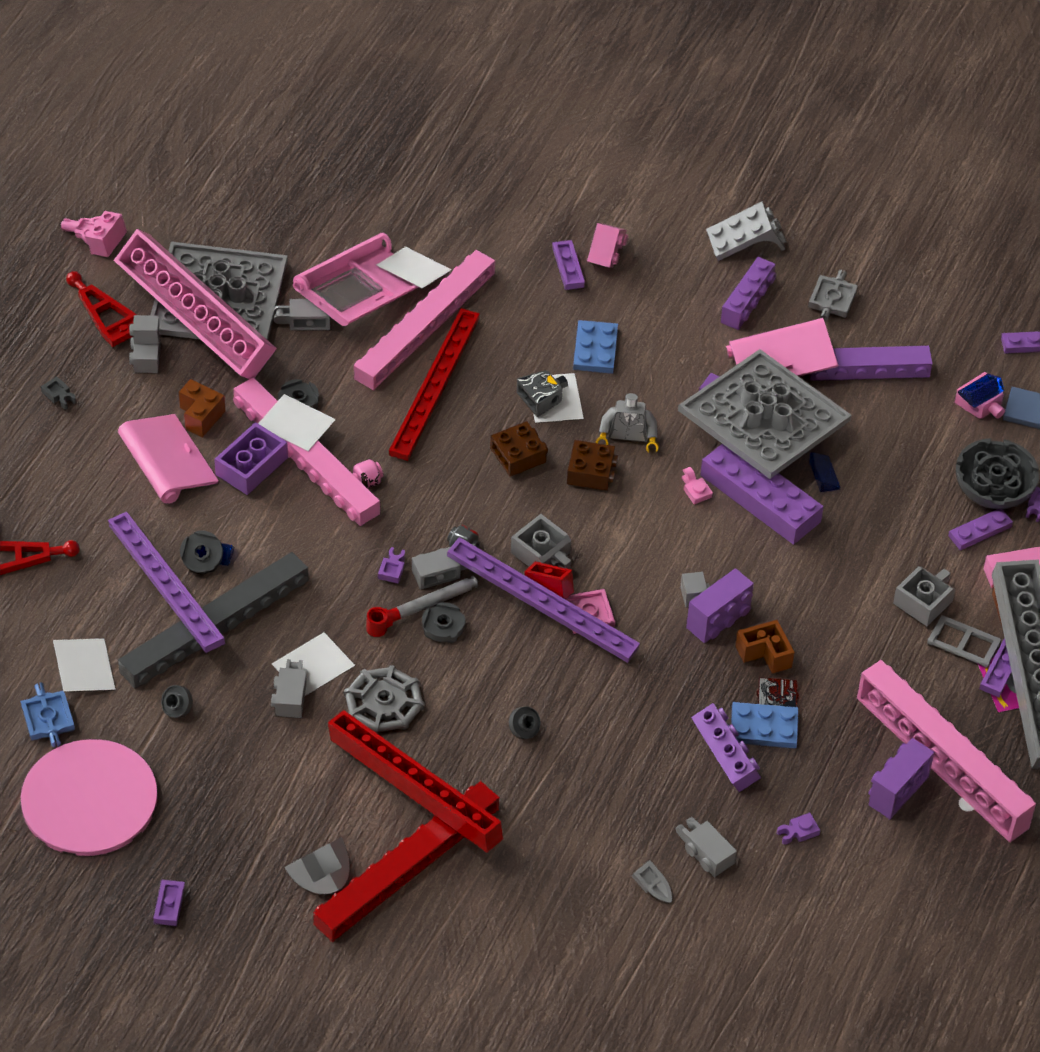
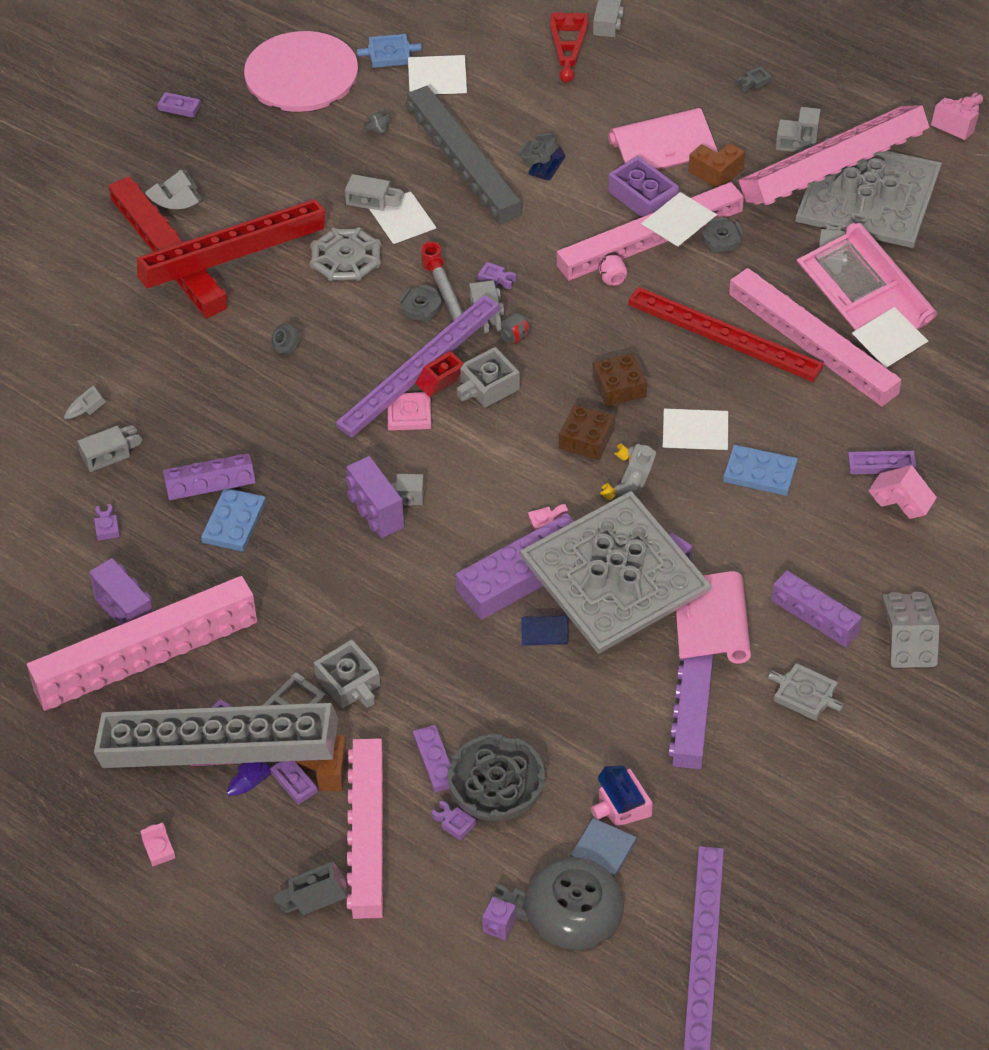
camera: 105 degrees right, 0 degrees up
(114, 333) = (830, 126): red plate -> none
(166, 582) = (504, 118): medium lavender plate -> none
(541, 391) = (695, 410): dark grey torso -> none
(768, 642) = (318, 532): dark orange brick -> none
(777, 692) = (268, 538): piece -> none

